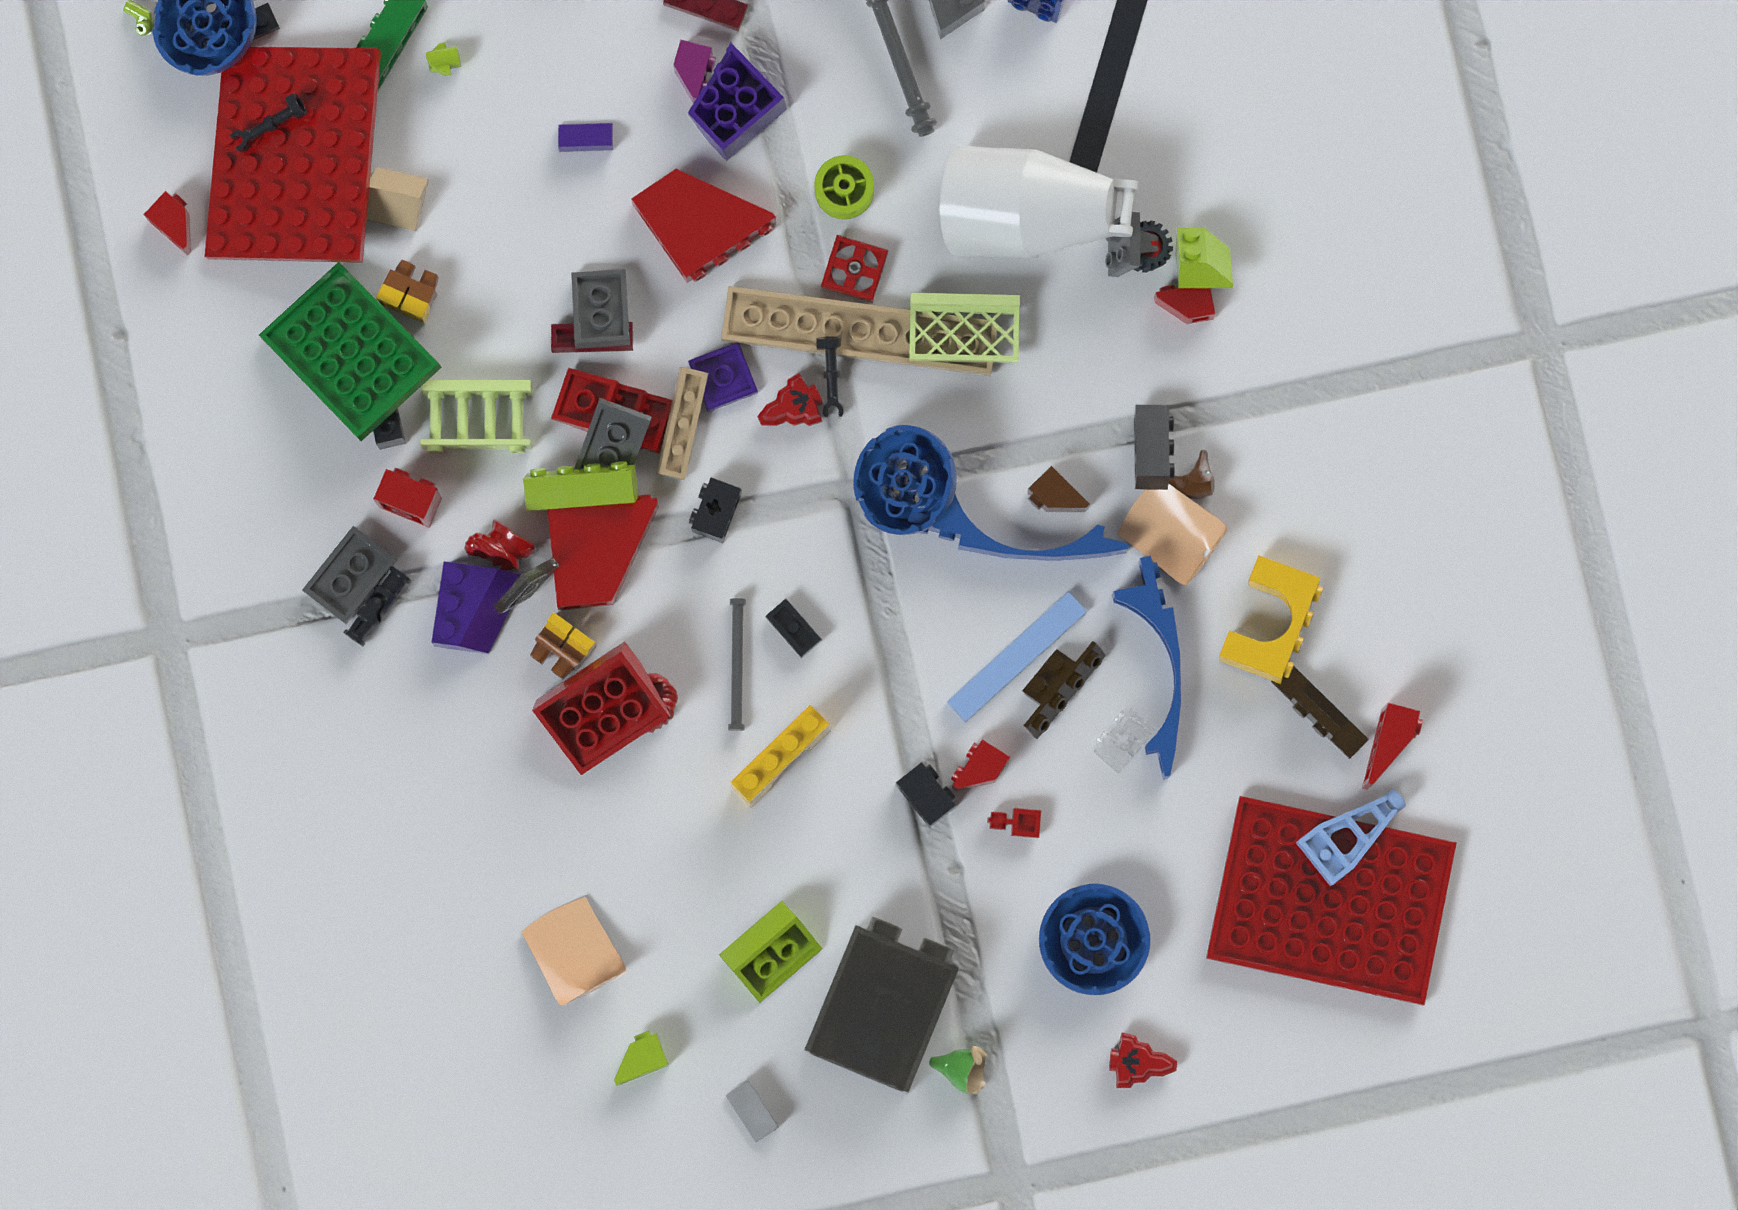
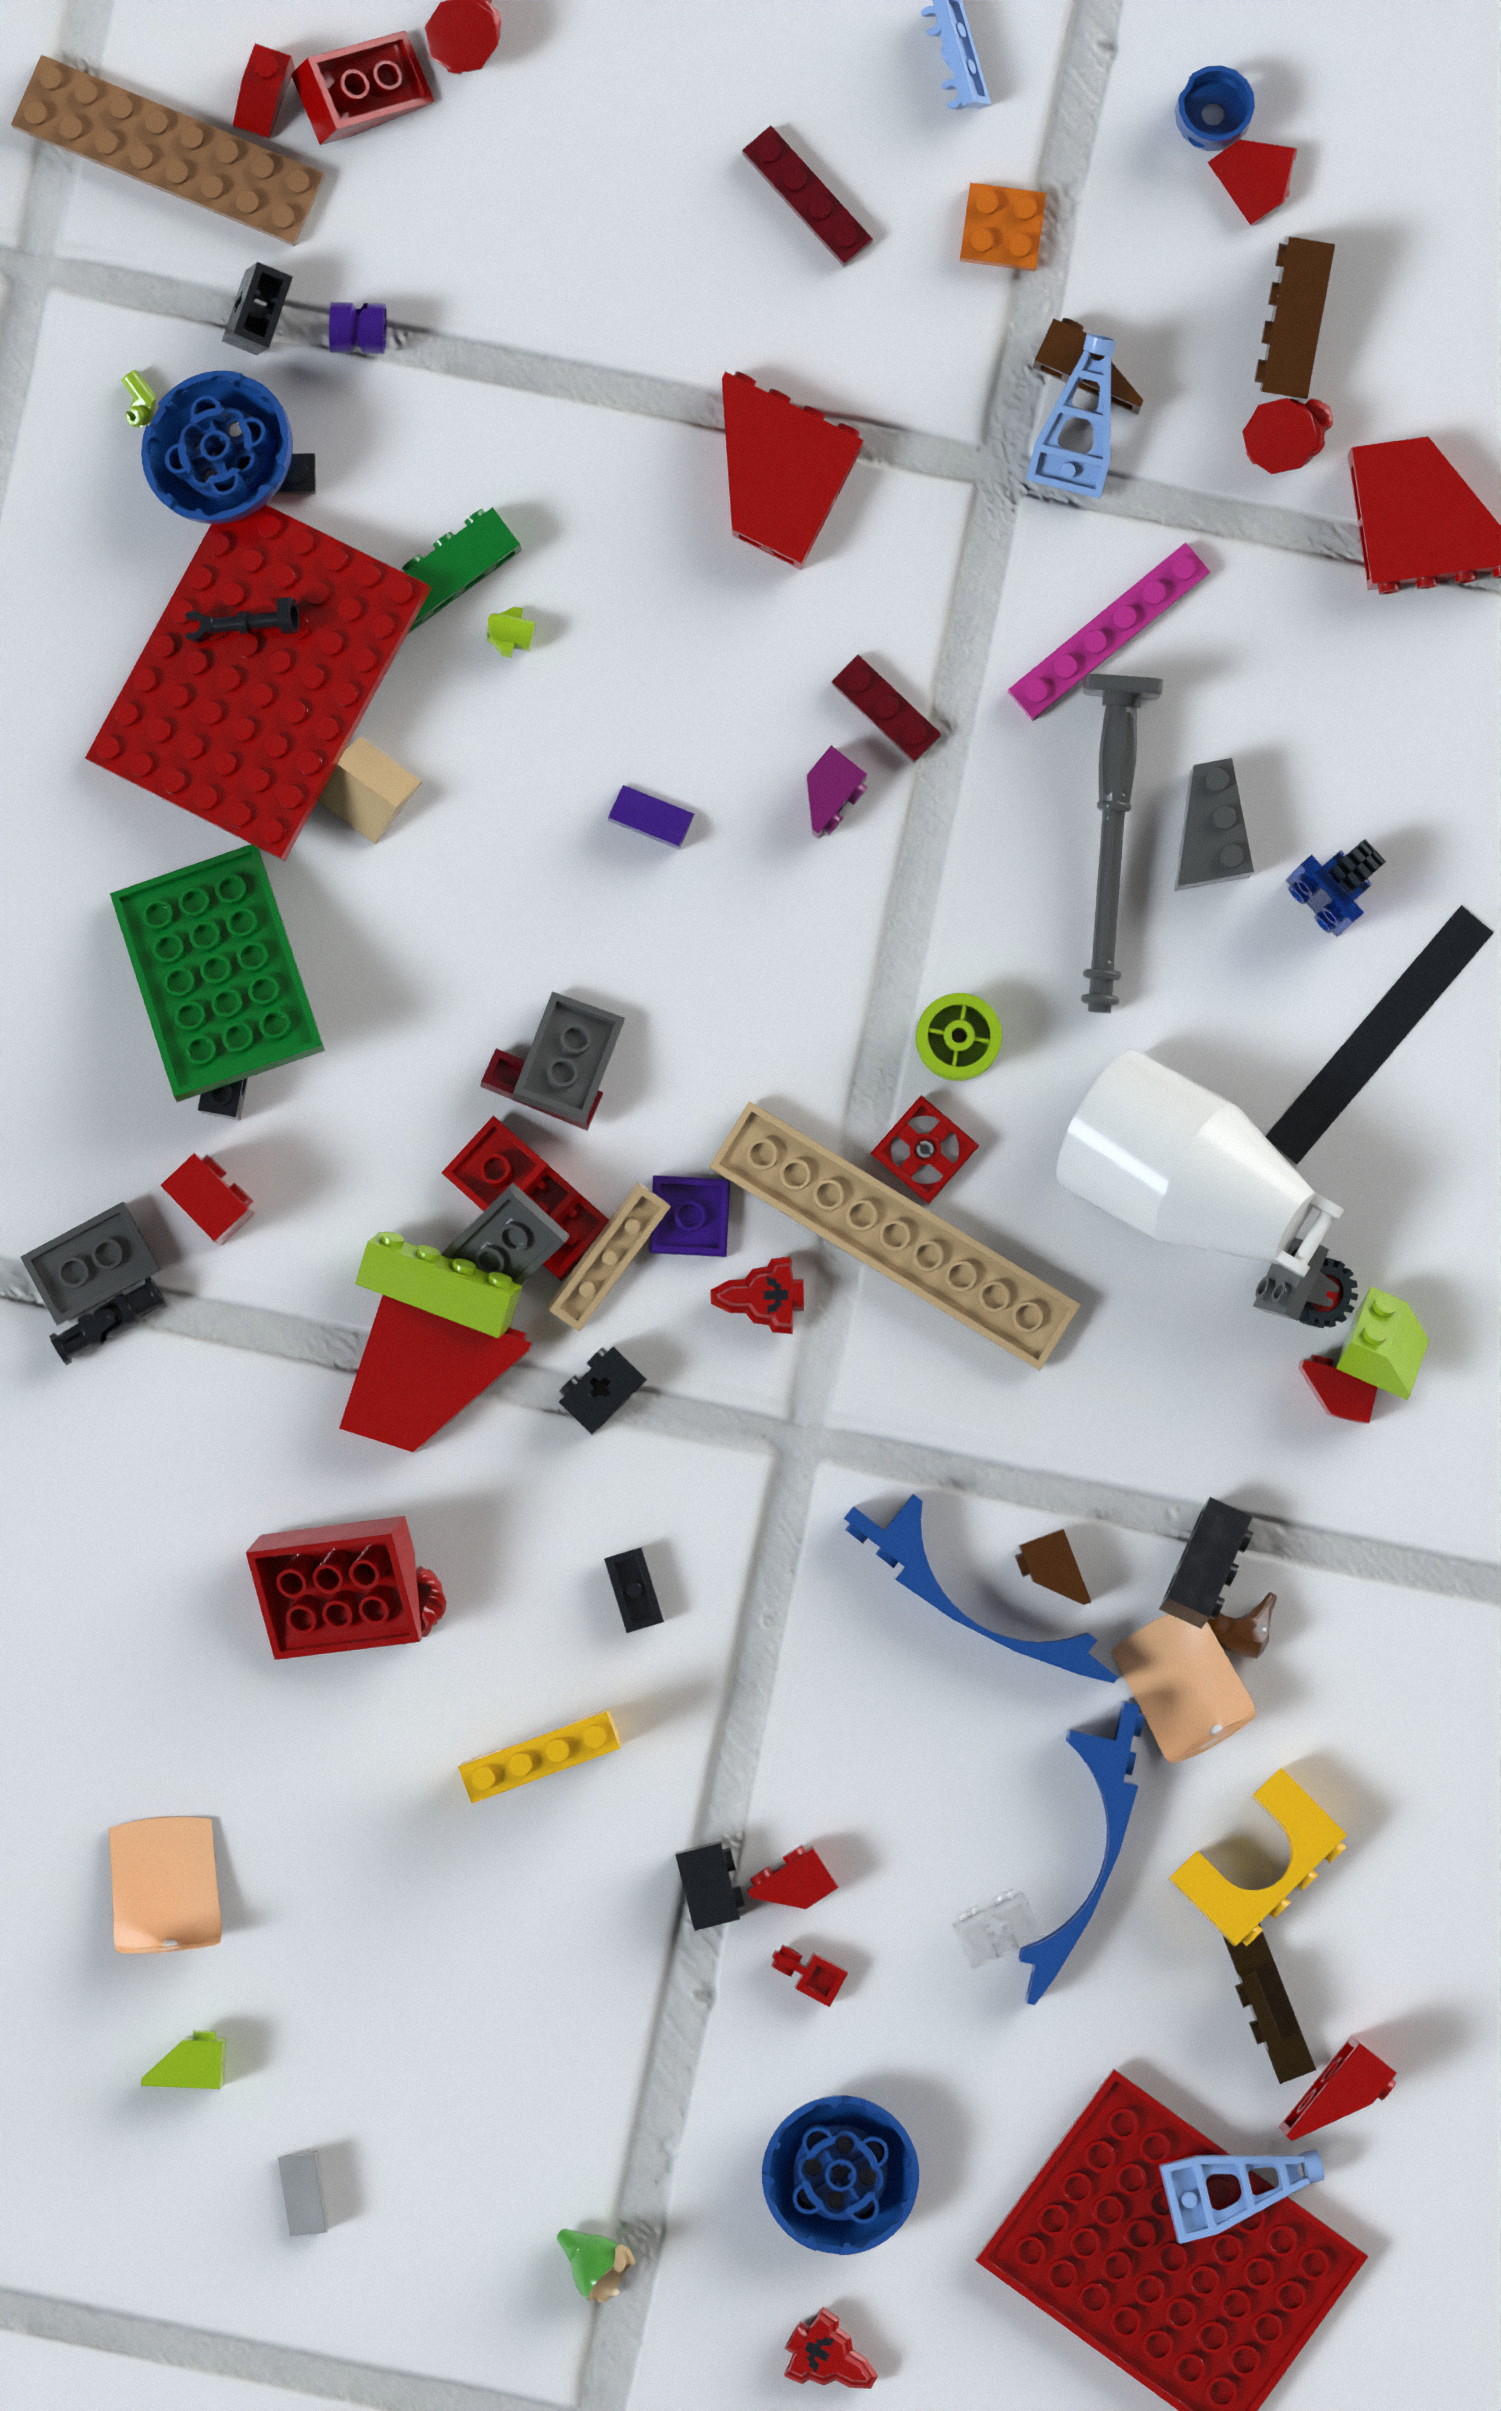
camera: 25 degrees right, 5 degrees up
(171, 219) = (63, 691): red slope -> none
(406, 294) = (340, 936): hips -> none
(465, 607) = (232, 1377): dark purple wedge -> none
(490, 392) = (377, 1104): yellowish green fence -> none
(499, 546) = (300, 1315): red piece -> none
(526, 585) = (309, 1384): clear smoke plate -> none
(551, 641) = (315, 1465): dark orange hips -> none
(699, 222) = (748, 999): red slope -> none
(735, 104) = (864, 862): dark purple wedge -> none
(737, 664) = (540, 1604): dark grey bar -> none
(770, 951) = (417, 1999): lime slope -> none
(831, 373) = (846, 1239): black piece -> none
(879, 472) = (834, 1440): blue brick -> none
(883, 1005) = (529, 2139): clear smoke brick -> none
(970, 305) = (1047, 1264): yellowish green fence -> none
(1016, 657) = (907, 1756): light blue tile -> none
(1057, 683) = (942, 1816): dark brown bracket -> none

